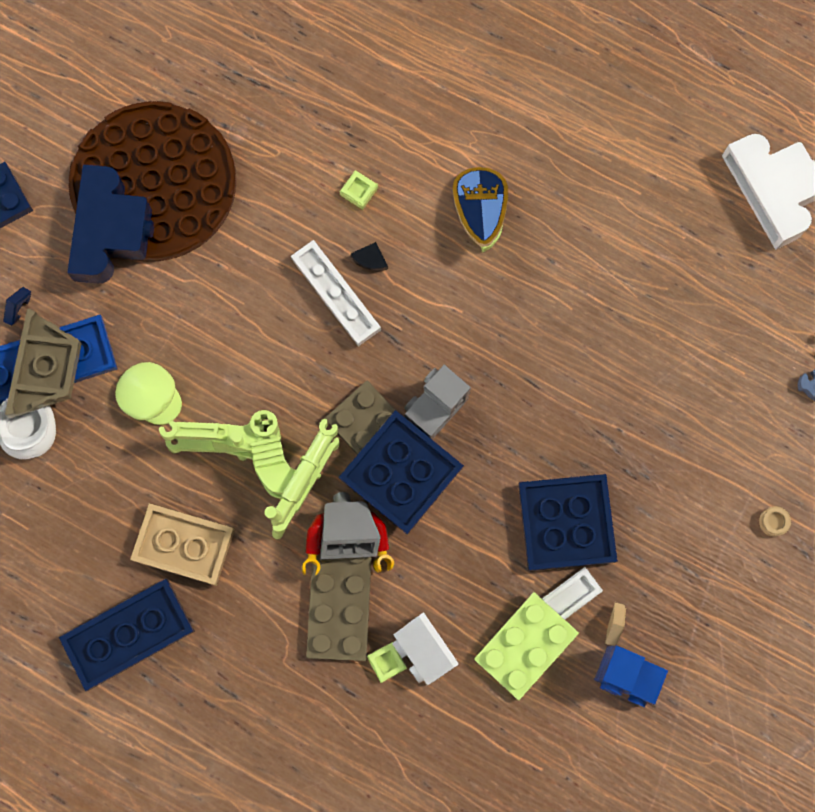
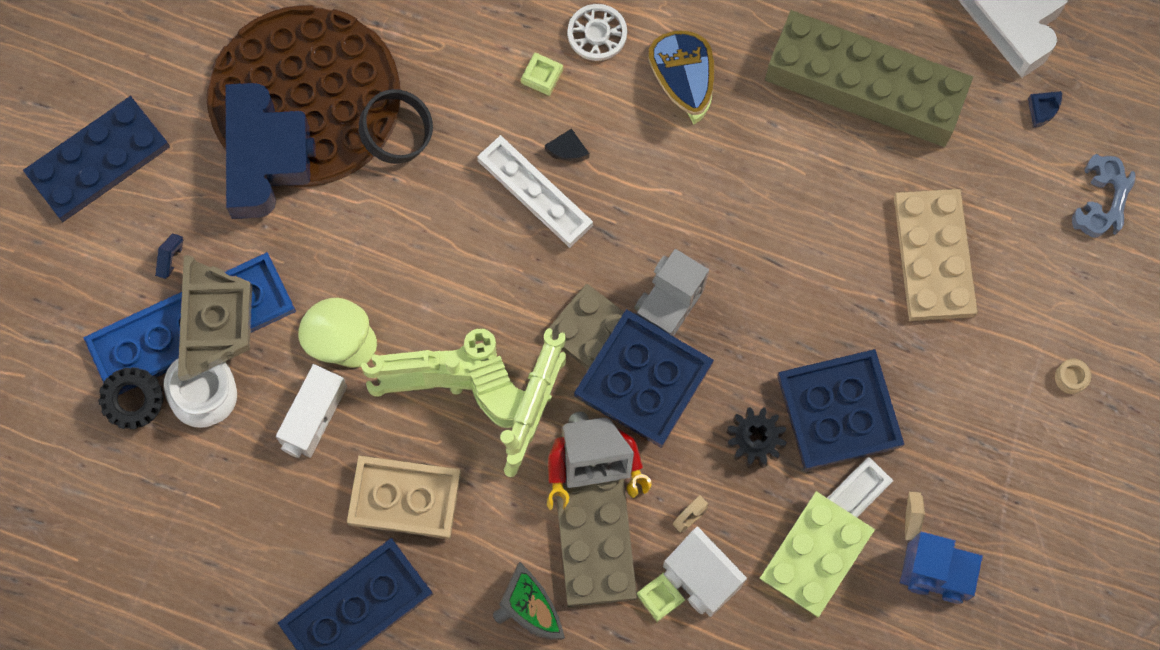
camera: 10 degrees left, 5 degrees down
(115, 459) = (311, 412): none -> white brick
(241, 197) = (410, 99): none -> black tyre
(273, 655) = (529, 606): none -> shield
(412, 159) = (597, 32): none -> white wheel
(423, 595) = (691, 514): none -> tan tile
(490, 524) = (752, 425): none -> black gear
(640, 233) = (868, 78): none -> olive brick
(672, 397) = (935, 255): none -> tan plate
(790, 279) = (1044, 107): none -> dark blue tile

